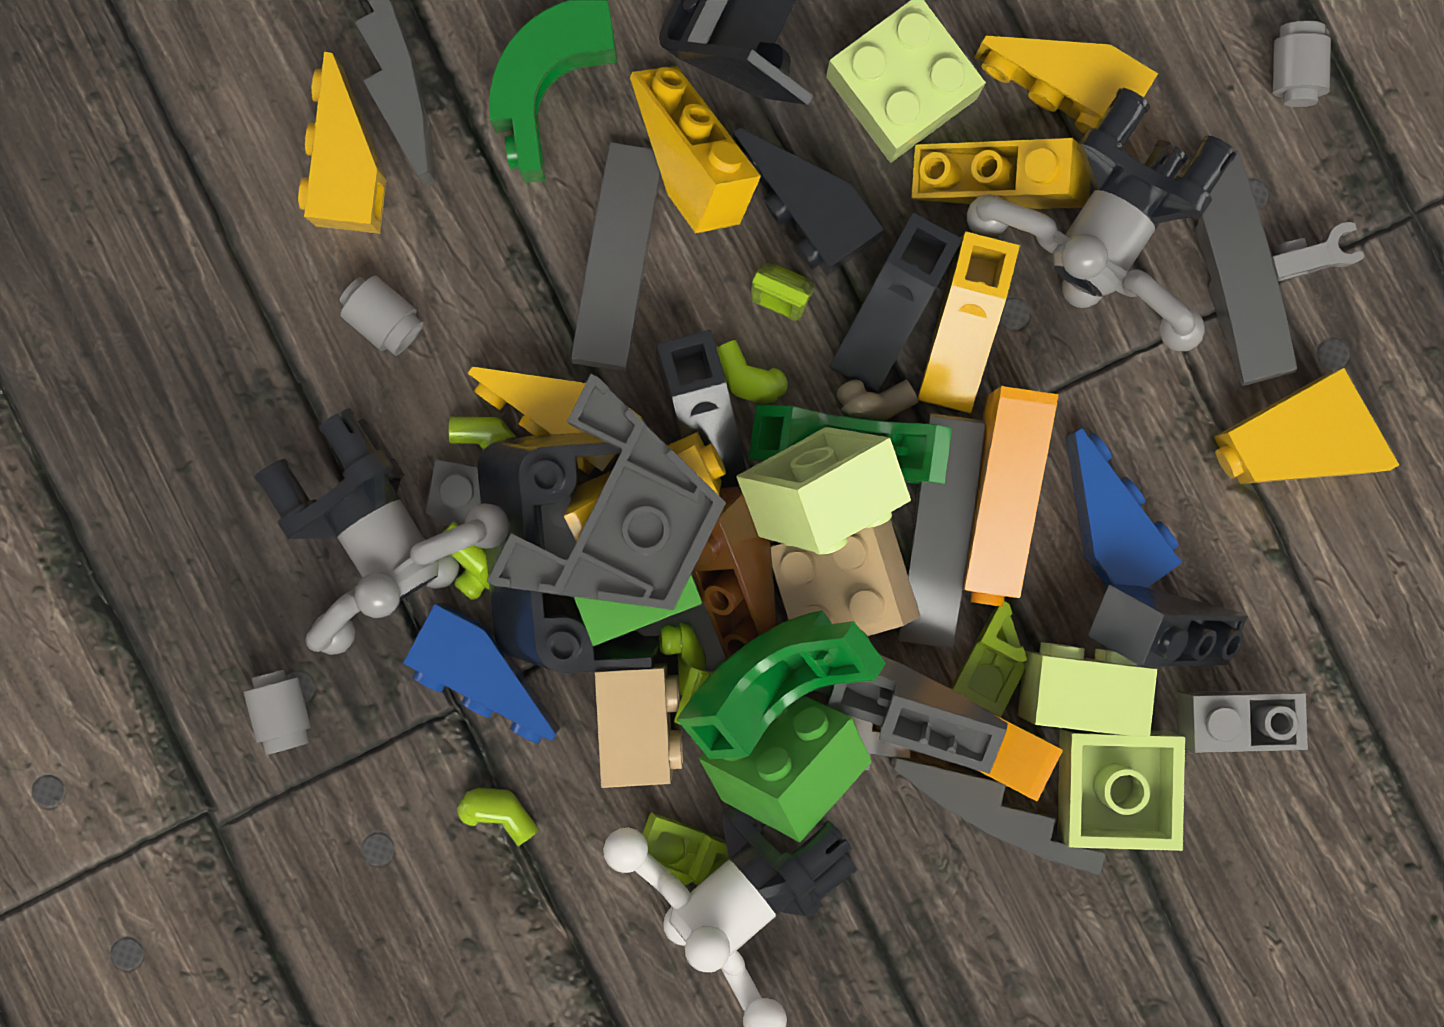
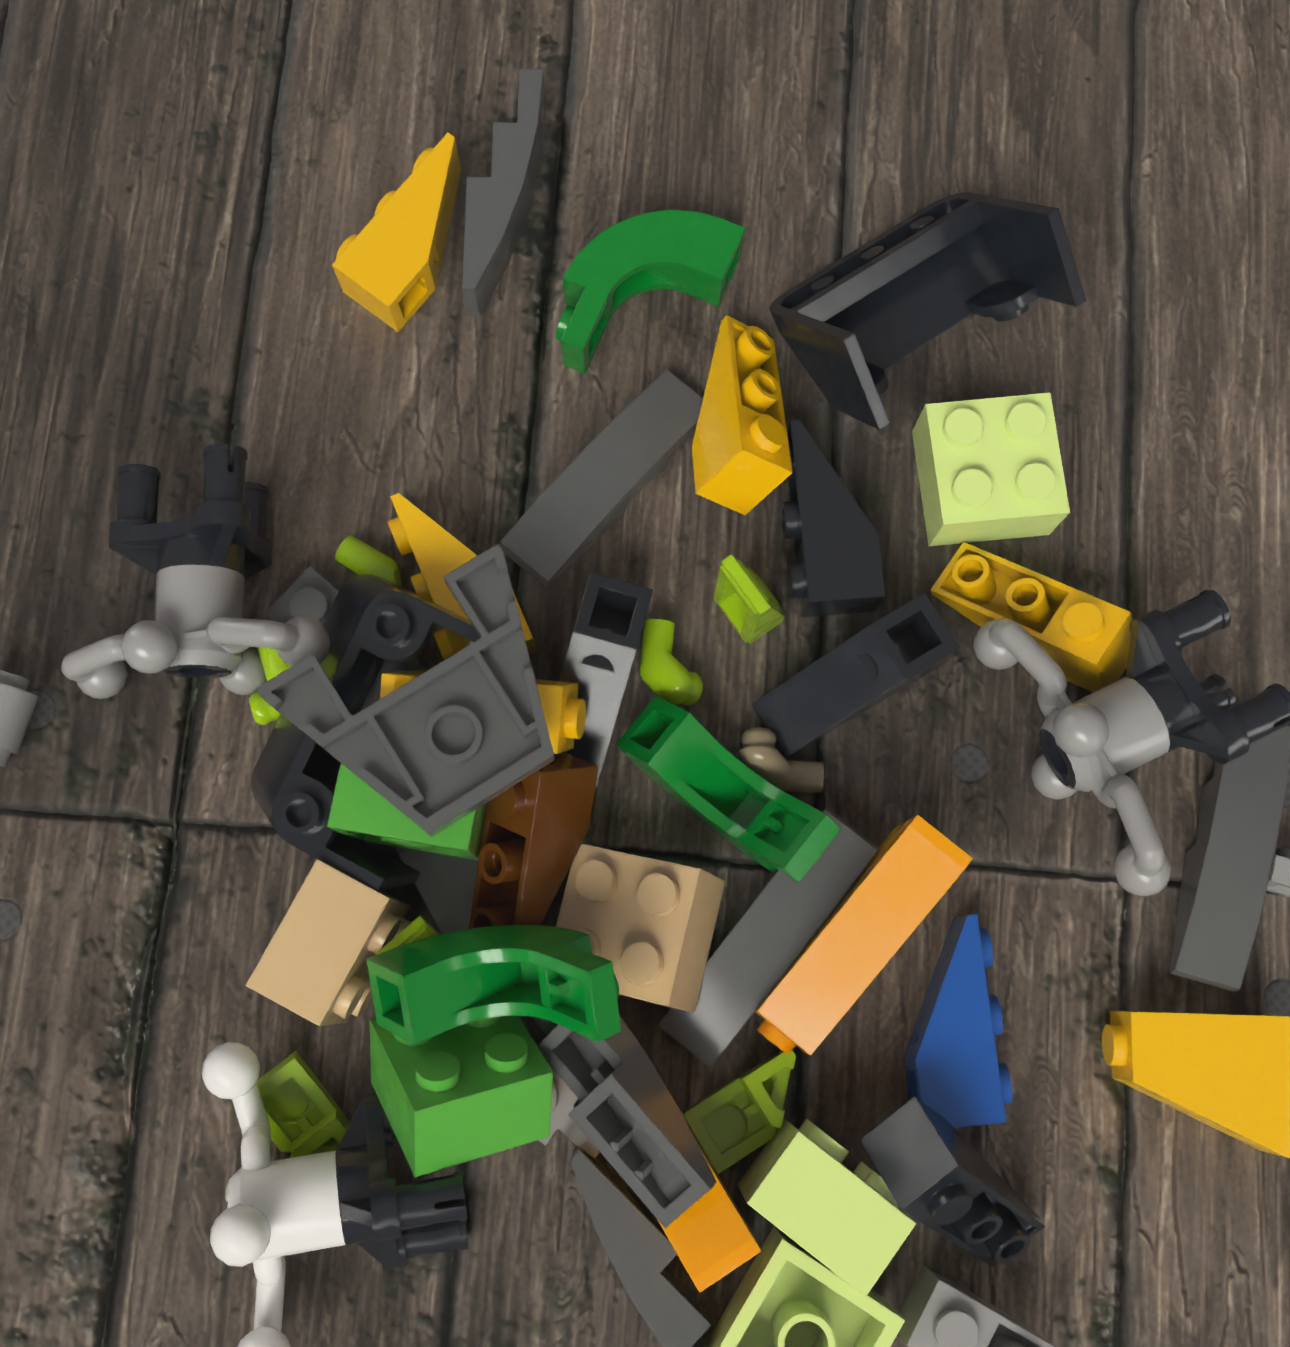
camera: 30 degrees right, 10 degrees down
(380, 314) = (346, 400): light grey brick -> none
(466, 658) = (210, 774): blue slope -> none
(497, 806) = (145, 949): lime arm -> none
(685, 643) = (436, 891): lime arm -> none
(824, 489) = (670, 812): yellowish green brick -> none
(967, 321) = (918, 738): yellow slope -> none
(1065, 74) = (1150, 552): yellow slope -> none

